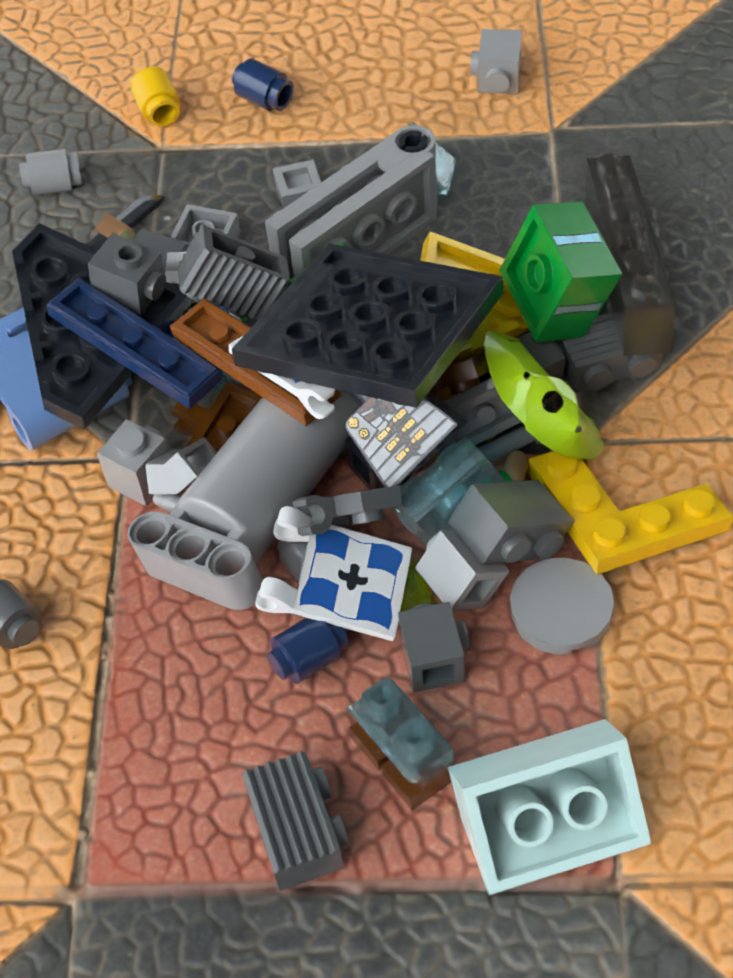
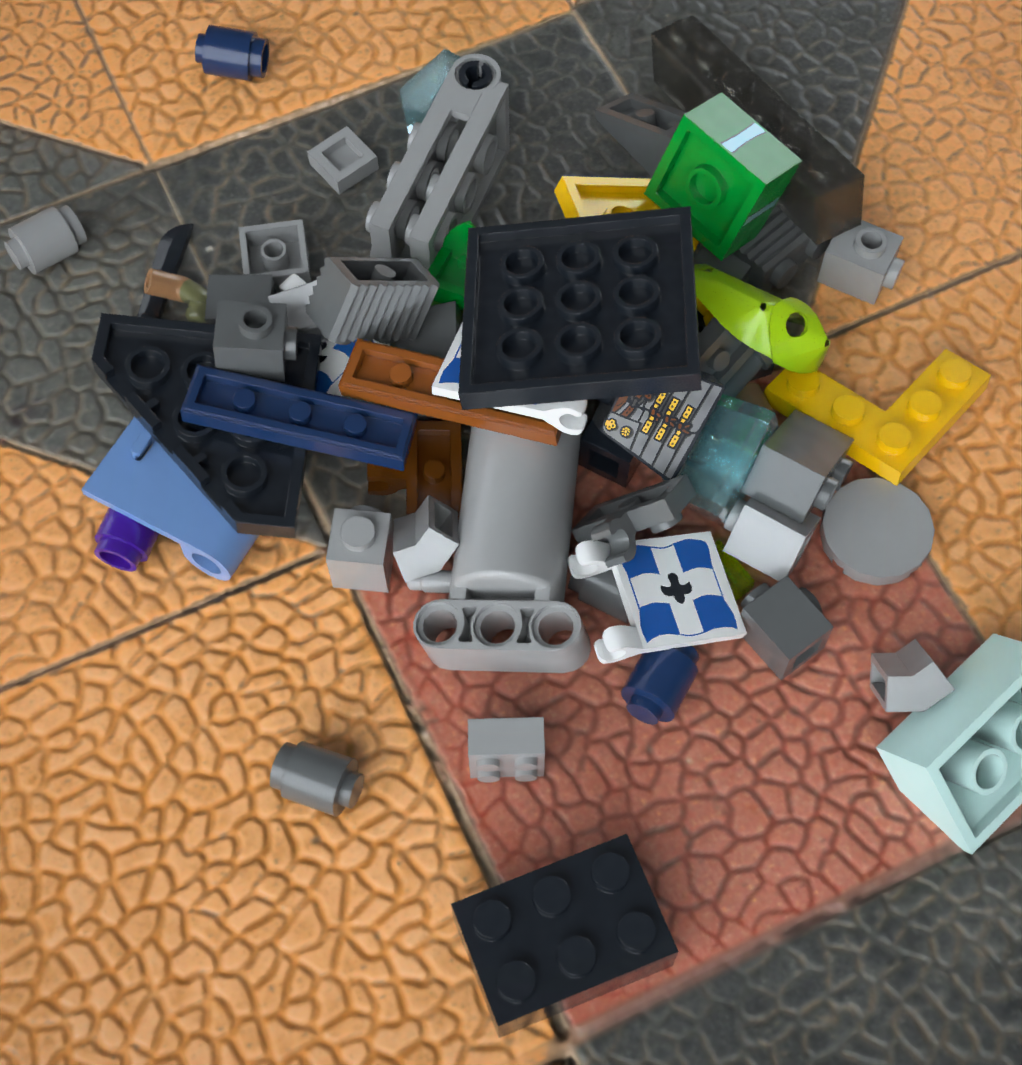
camera: 30 degrees left, 10 degrees up
(109, 804) = (563, 935): none -> black brick
(153, 647) = (506, 748): none -> light grey piece
(156, 96) = (115, 105): yellow brick -> none
(294, 820) = (755, 866): dark grey brick -> none
(401, 742) = (831, 738): clear light blue hips -> none
(507, 725) = (907, 679): none -> light grey piece
(671, 388) = (862, 262): none -> light grey brick

